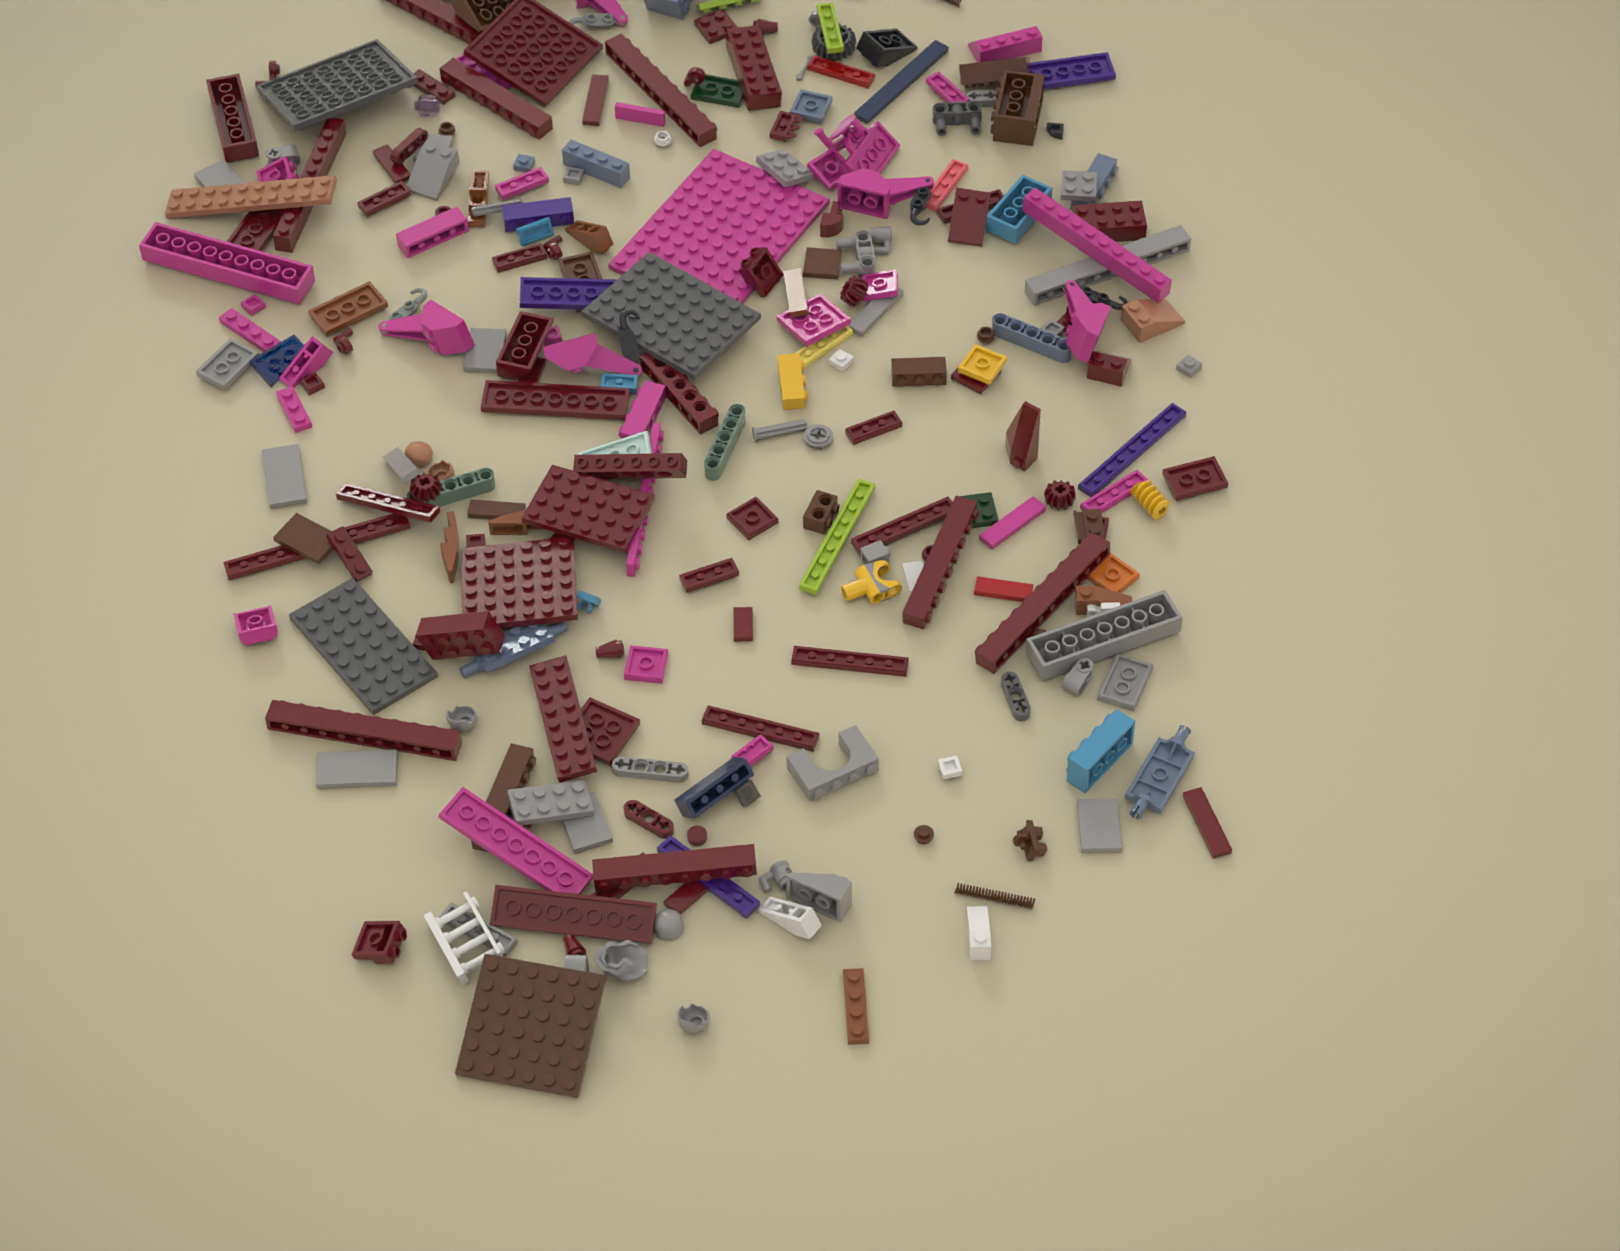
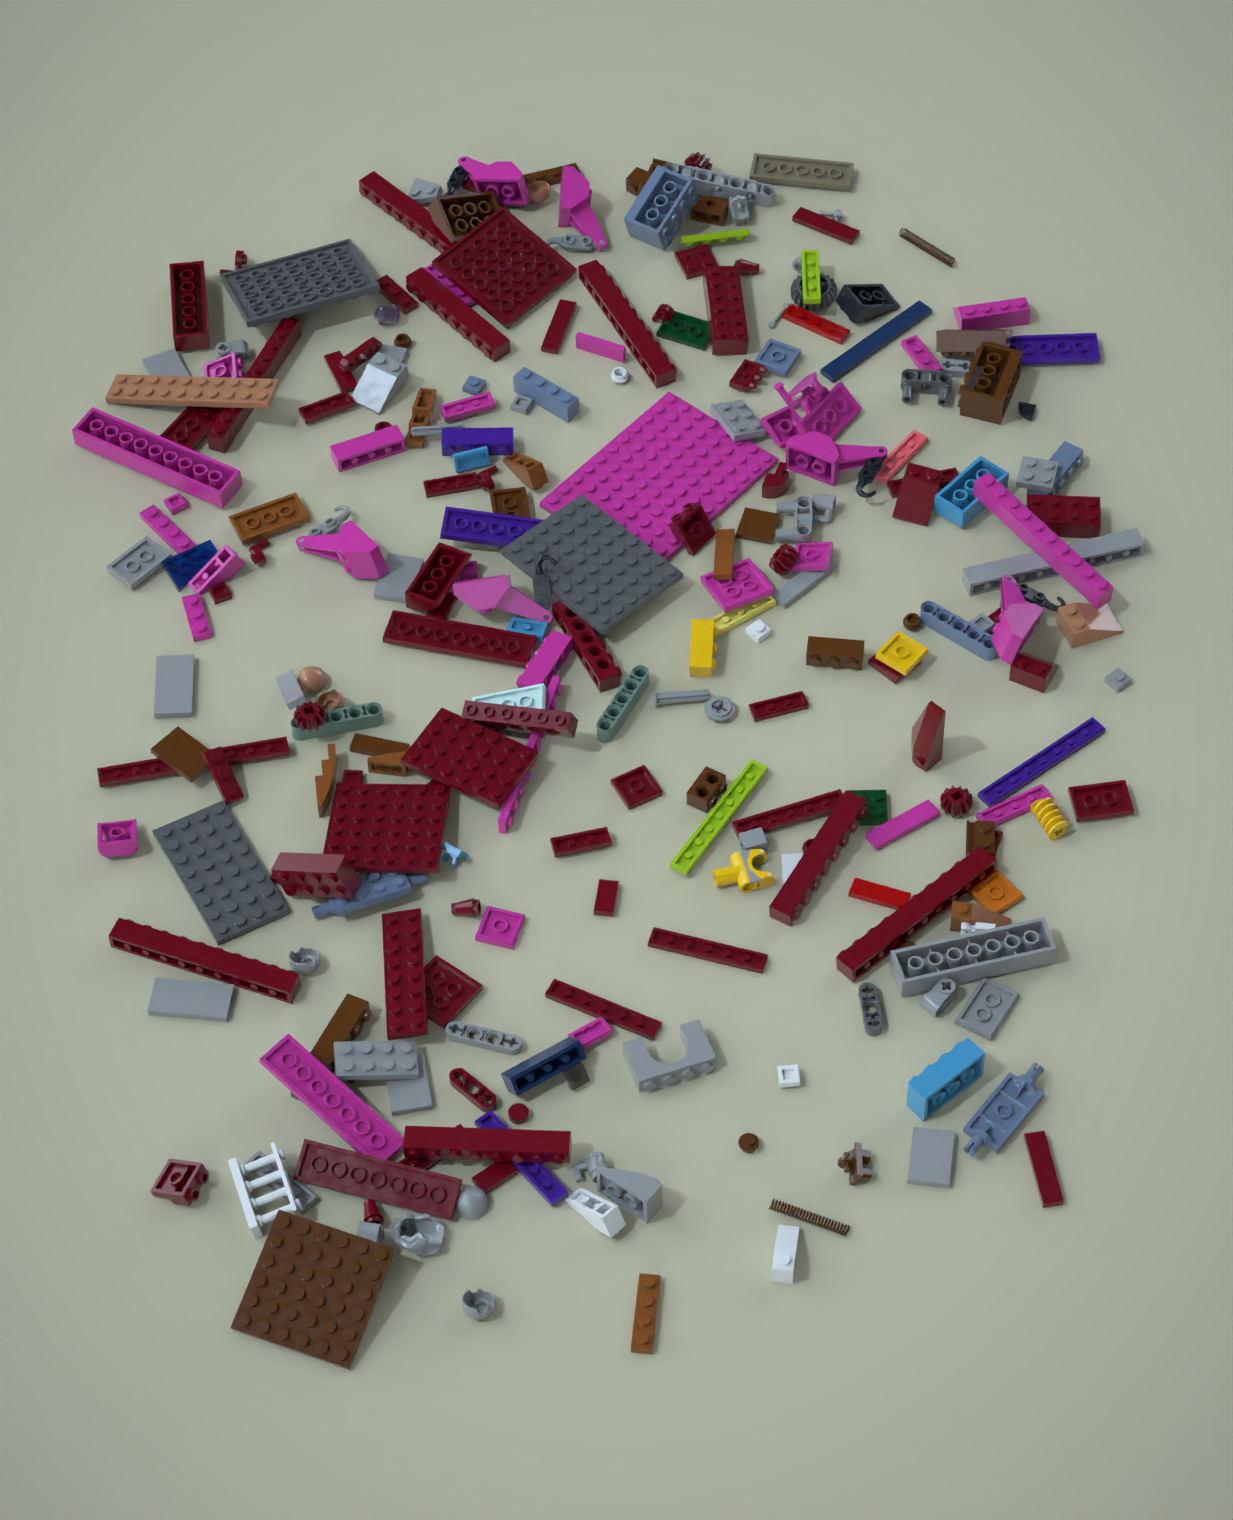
camera: 10 degrees right, 0 degrees up
(388, 502) = (271, 727): dark red plate -> none

